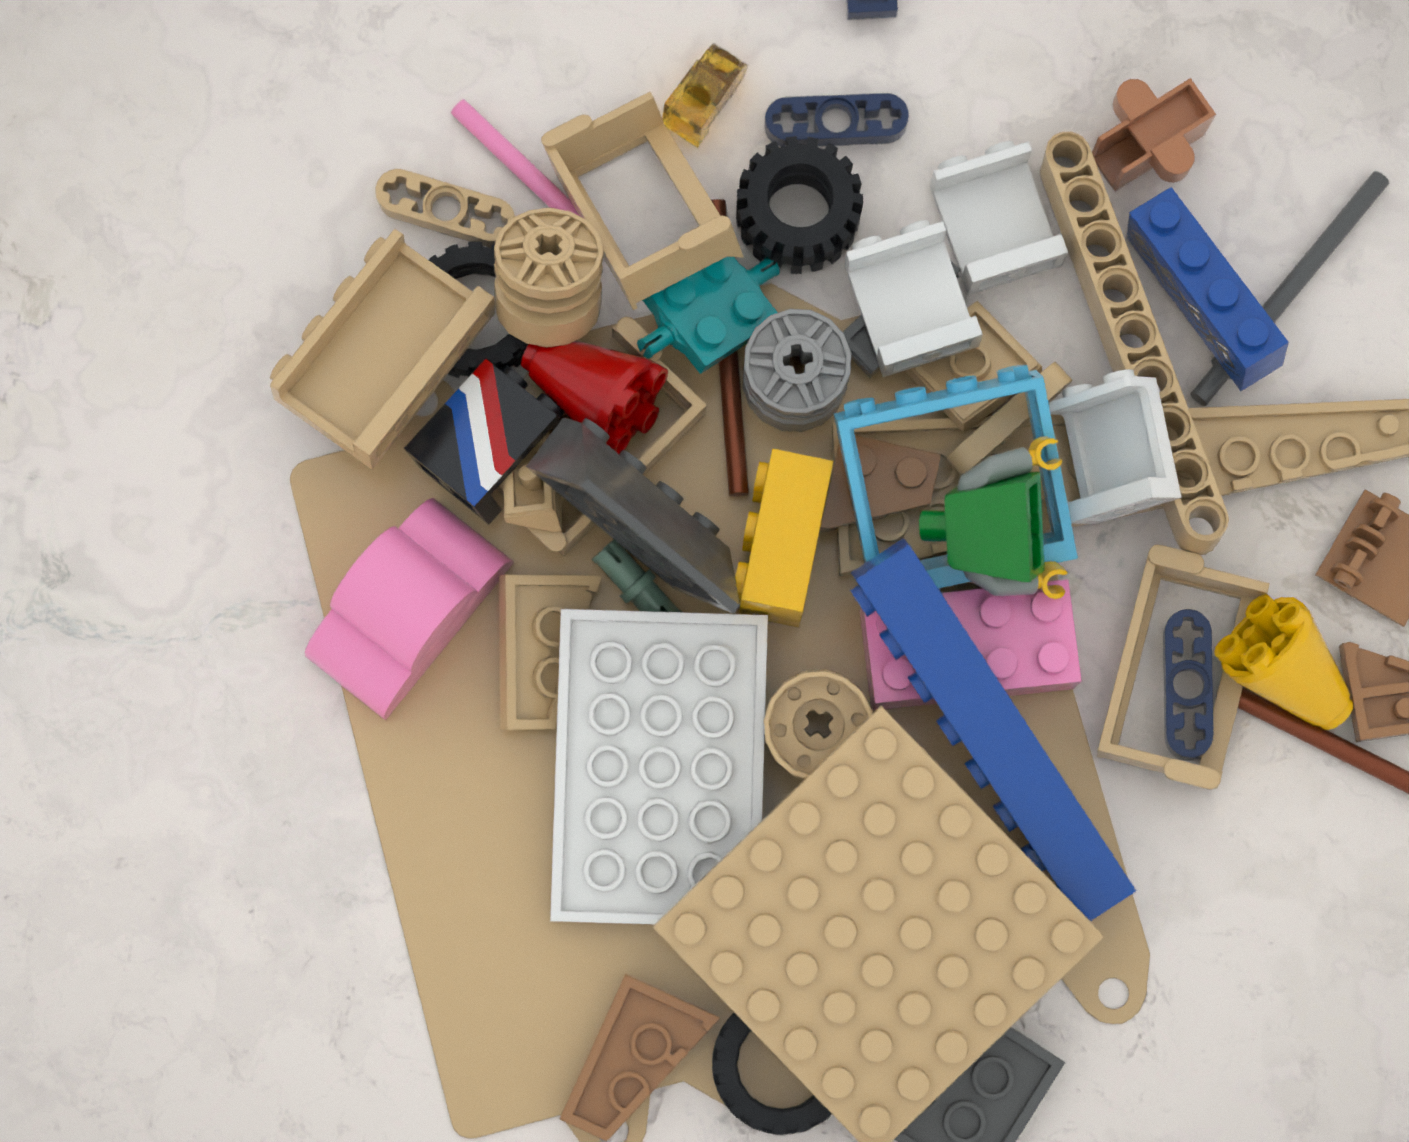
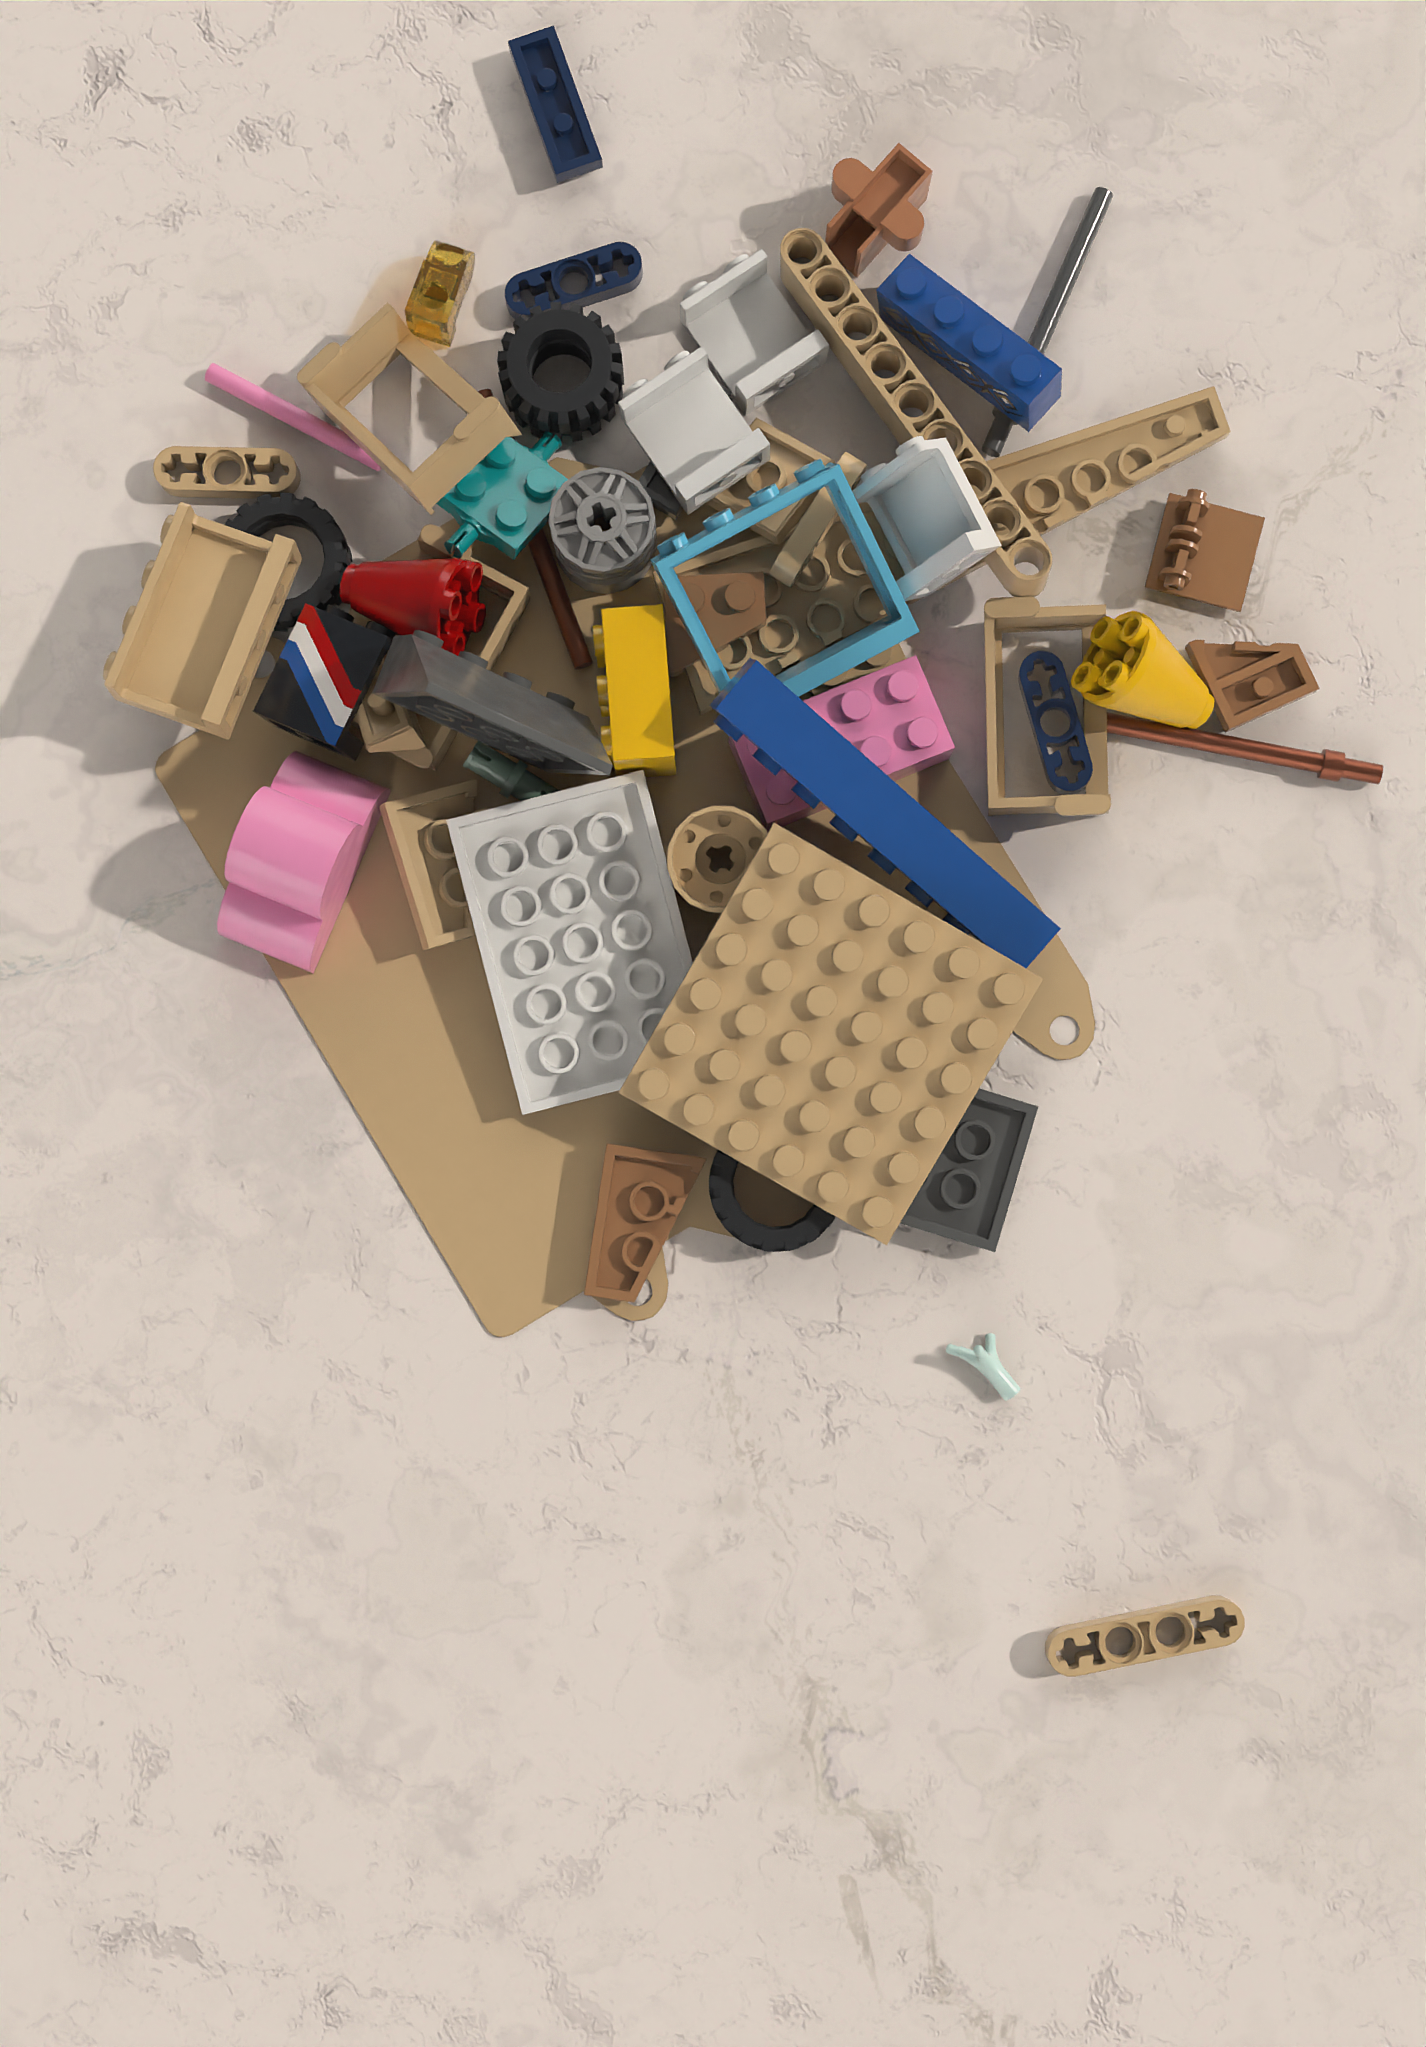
camera: 15 degrees left, 5 degrees up
(548, 277) = (340, 505): tan wheel -> none
(997, 524) = (834, 618): green torso -> none

